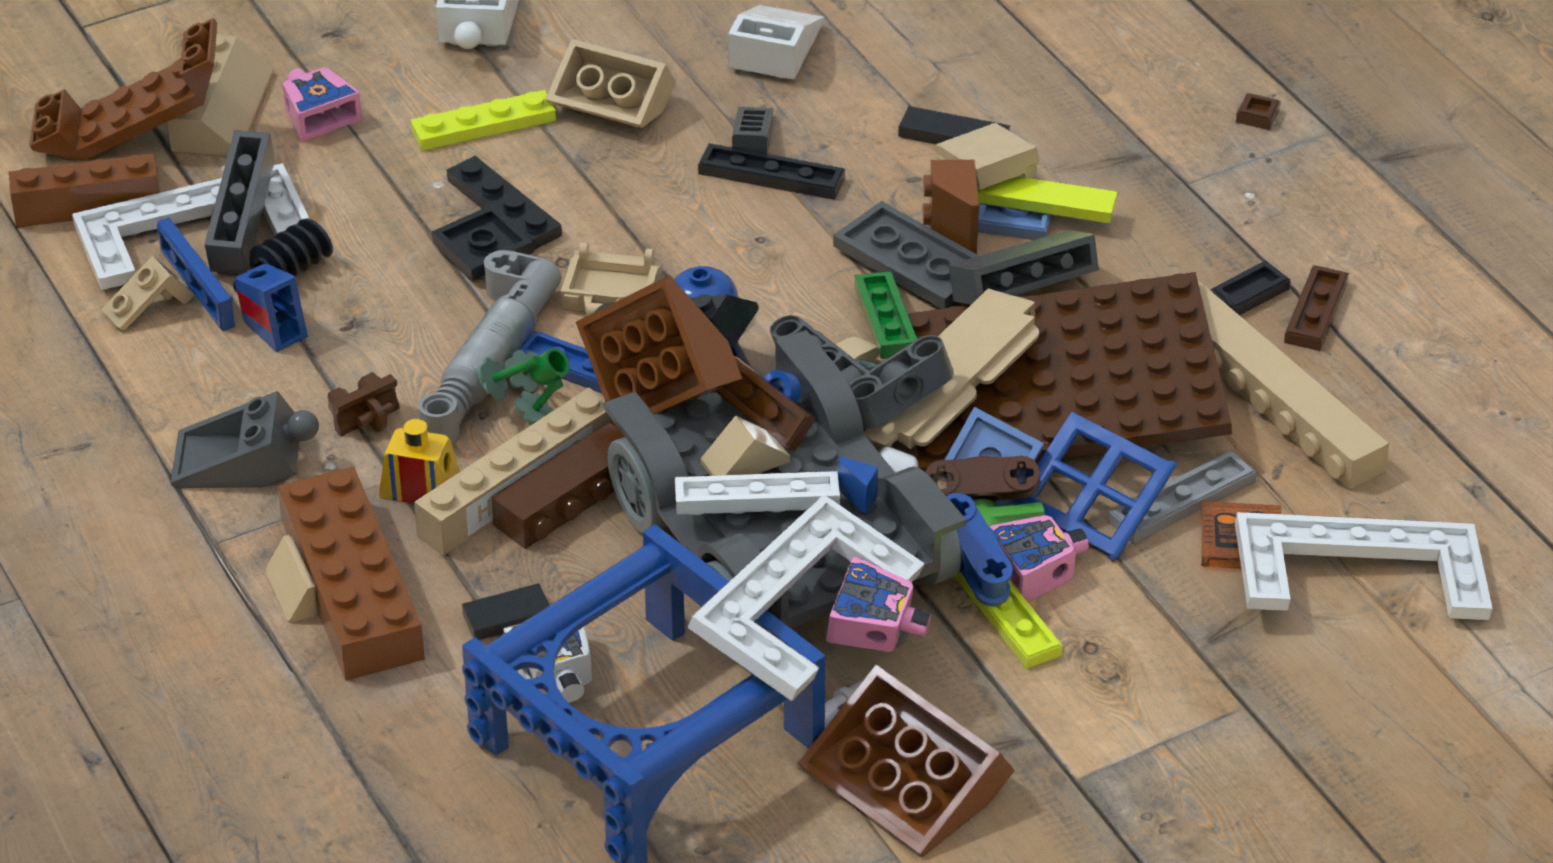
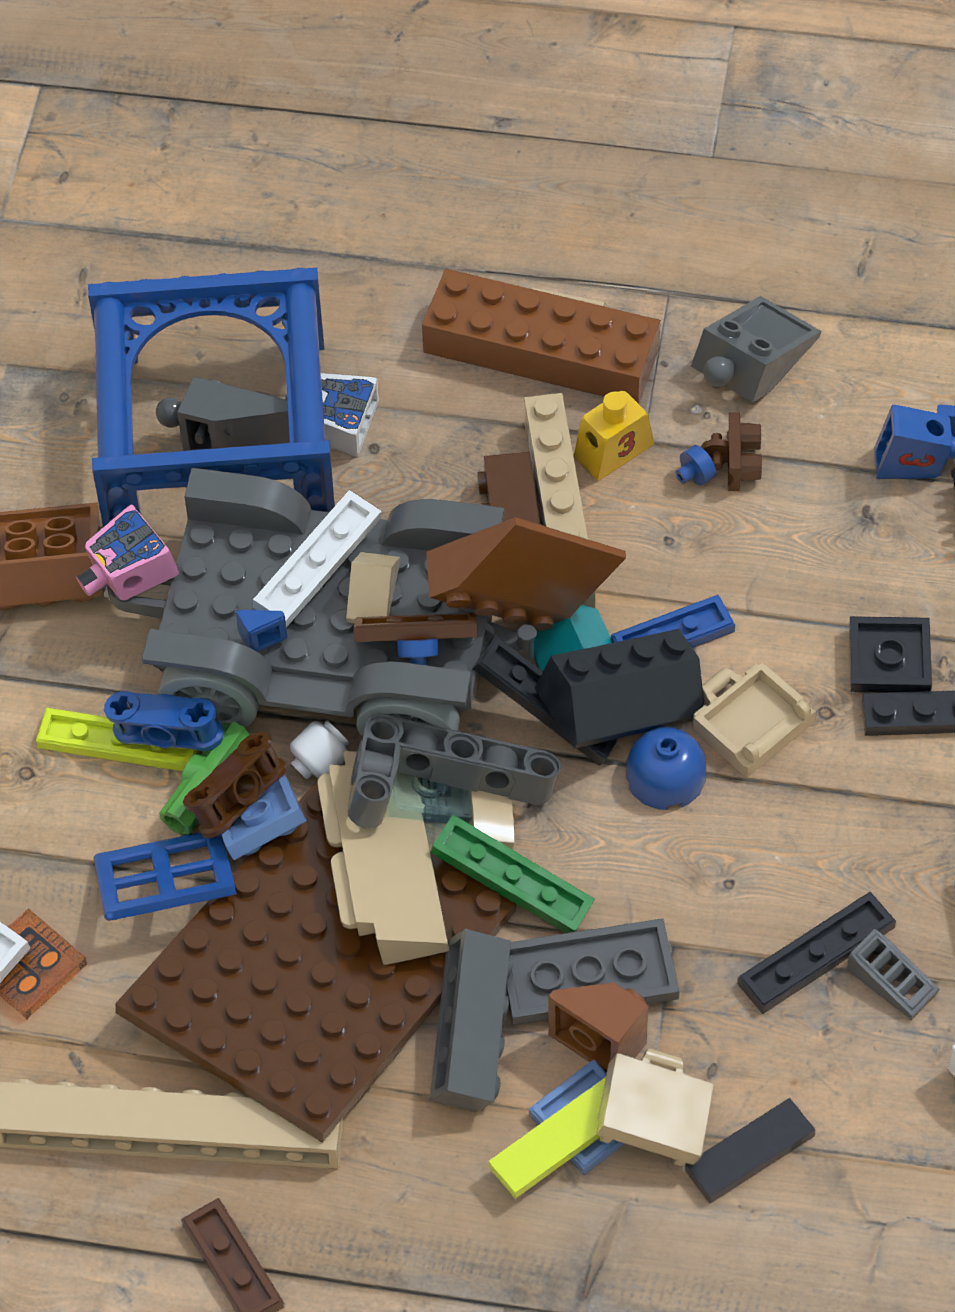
camera: 130 degrees right, 15 degrees up
(398, 414) = (695, 466): none -> blue tile
(494, 613) = (418, 420): black tile -> none
(520, 290) = (739, 580): light grey piece -> none
(526, 372) = (637, 567): plant -> none
(641, 677) = (225, 416): none -> dark grey slope
(730, 615) = (220, 553): white plate -> none
(1039, 553) = (138, 785): torso -> none
(1185, 494) = (109, 969): light grey tile -> none
(1252, 287) = (306, 1227): black tile -> none

